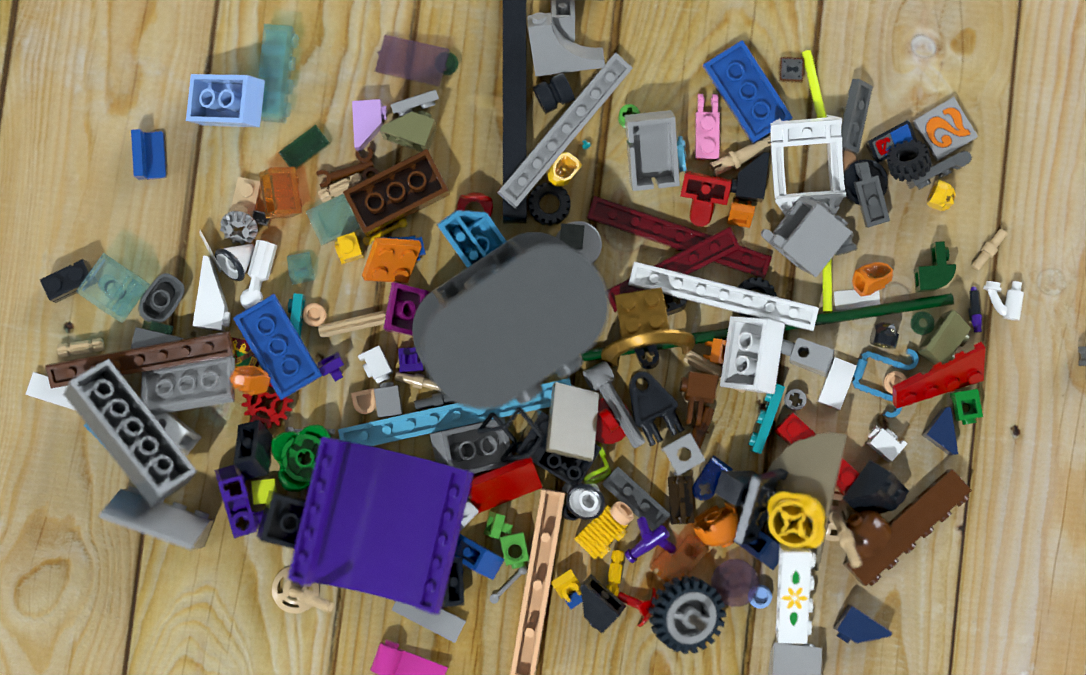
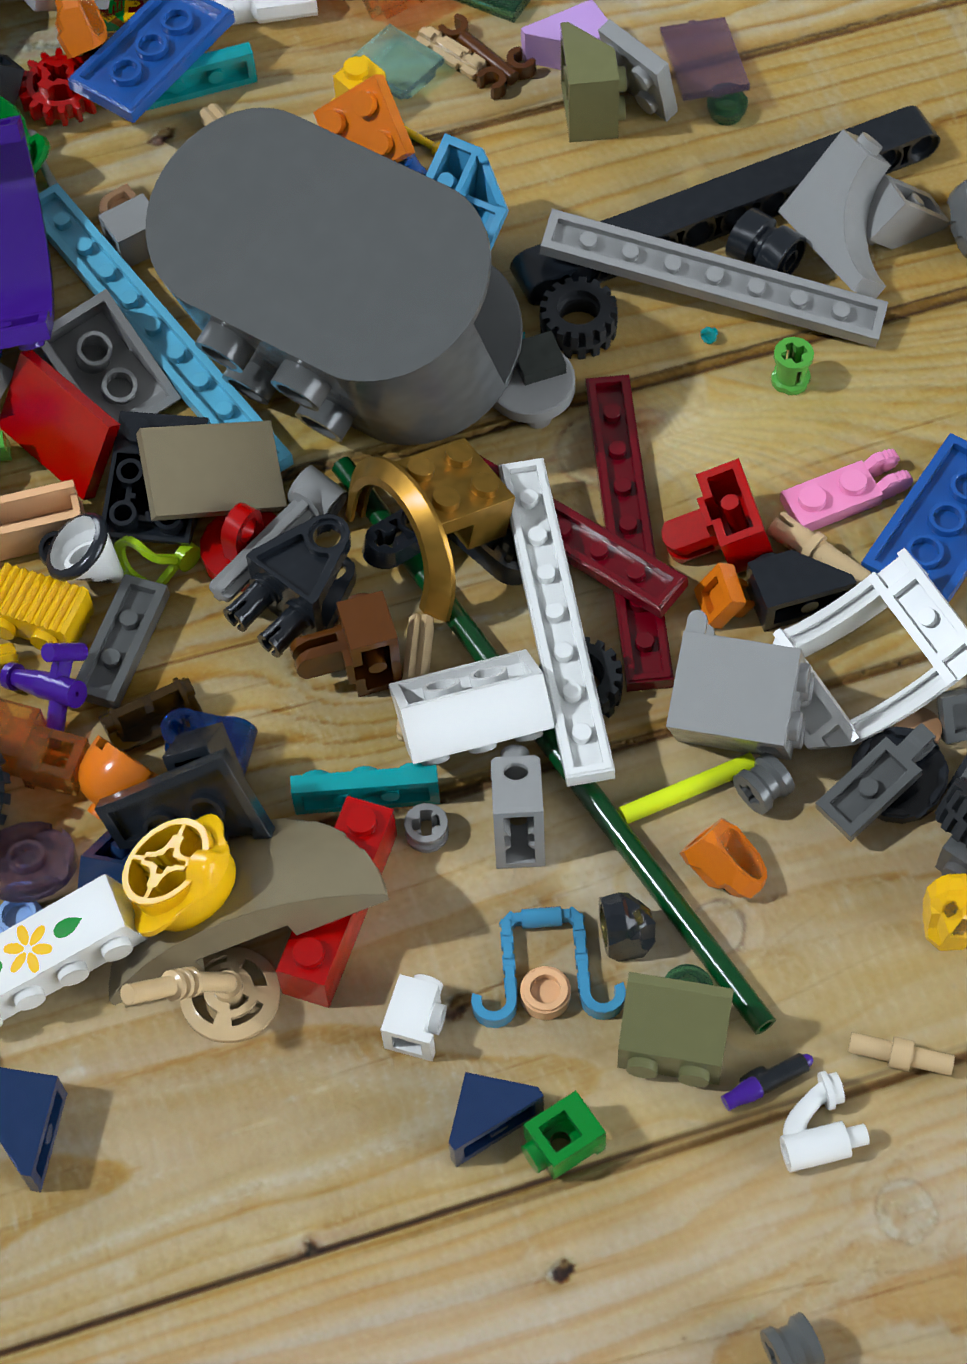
camera: 70 degrees right, 25 degrees down
(300, 268) = (297, 55): clear light blue slope -> none
(314, 315) = (232, 95): light nougat tile -> none
(331, 365) = (156, 141): dark purple tile -> none
(396, 193) = (483, 103): reddish brown brick -> none
(436, 400) = (157, 287): dark grey bar -> none
(485, 201) = (533, 230): red piece -> none
(504, 427) = (146, 347): black piece -> none
(563, 169) = (644, 302): rock -> none
(622, 513) = (81, 615): light nougat tile -> none
(652, 150) = (751, 409): light grey piece -> none
(672, 449) = (217, 679): light grey piece -> none
(681, 154) = (774, 468): medium azure piece -> none
(699, 432) = (295, 693): reddish brown axle -> none
(717, 352) = (451, 653): orange tile -> none
(836, 383) = (492, 887): white tile -> none
(851, 299) = (665, 846): white sticker -> none
(869, 532) = (216, 1033): reddish brown cylinder -> none
(875, 490) = (306, 1021): black slope -> none
(912, 523) = (265, 1129): reddish brown brick -> none
(939, 274) = (795, 973): dark green brick -> none
(942, 378) = (613, 1075): red wing -> none

